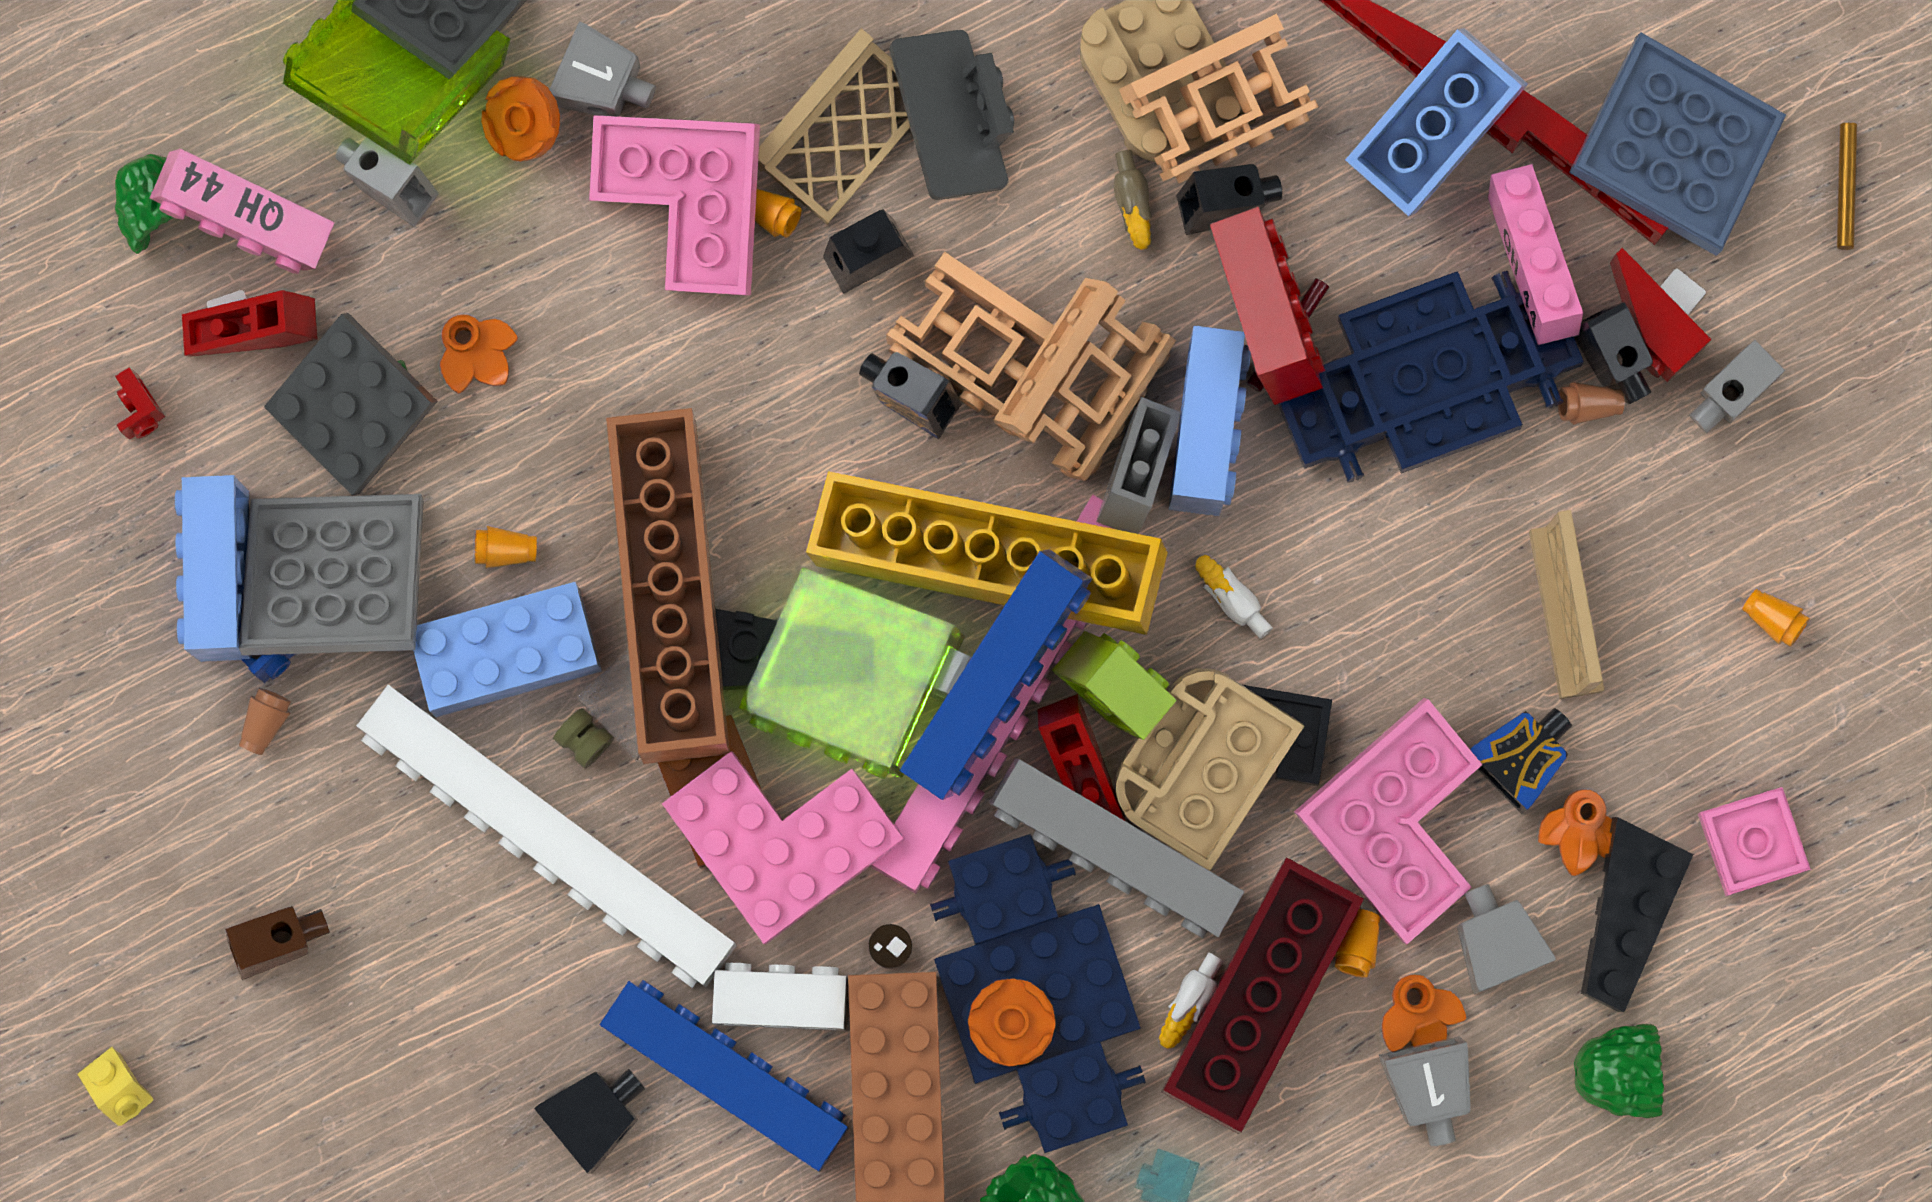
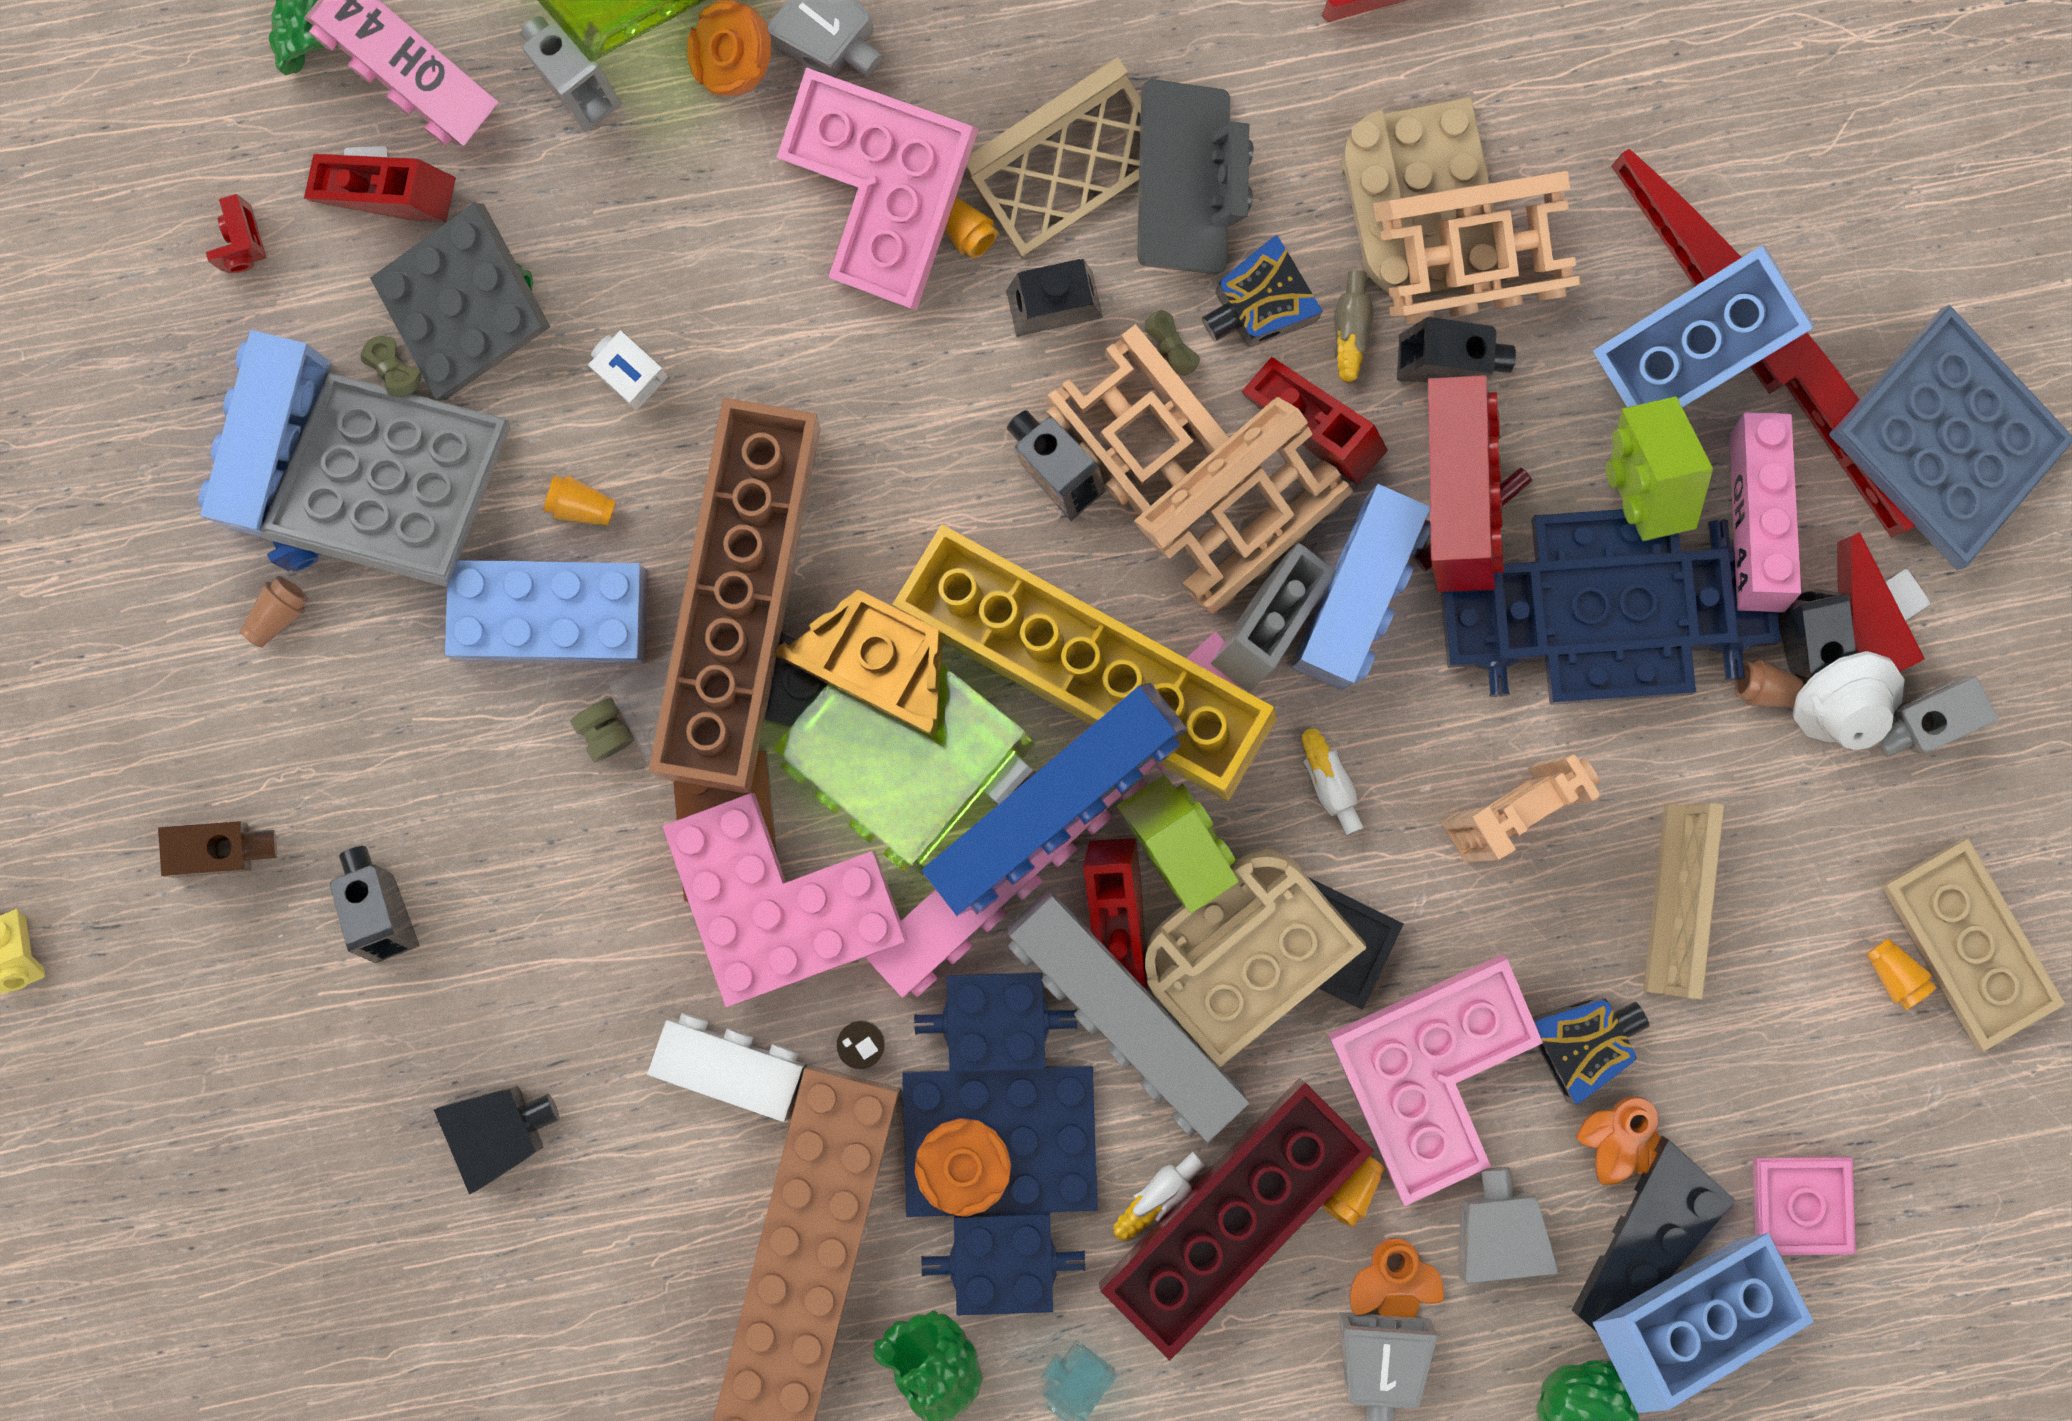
camera: 10 degrees right, 5 degrees up
(315, 486) = (398, 378): none -> olive piece
(427, 951) = (371, 909): none -> black torso
(478, 358) = (612, 291): orange plate -> none
(512, 420) = (626, 369): none -> white brick
(546, 836) = (532, 822): white brick -> none
(724, 1075) = (646, 1131): blue brick -> none
(804, 601) = (875, 658): none -> wing
(968, 249) = (1162, 328): none -> olive piece
(1048, 198) = (1263, 298): none -> torso
(1148, 293) = (1338, 432): none -> red slope
(1376, 591) = (1485, 831): none -> light nougat fence
(1430, 243) = (1659, 468): none -> lime brick
(1658, 393) = (1851, 701): none -> white hat
(1691, 962) = (1703, 1323): none -> light blue brick
(1831, 573) = (1973, 945): none -> tan plate

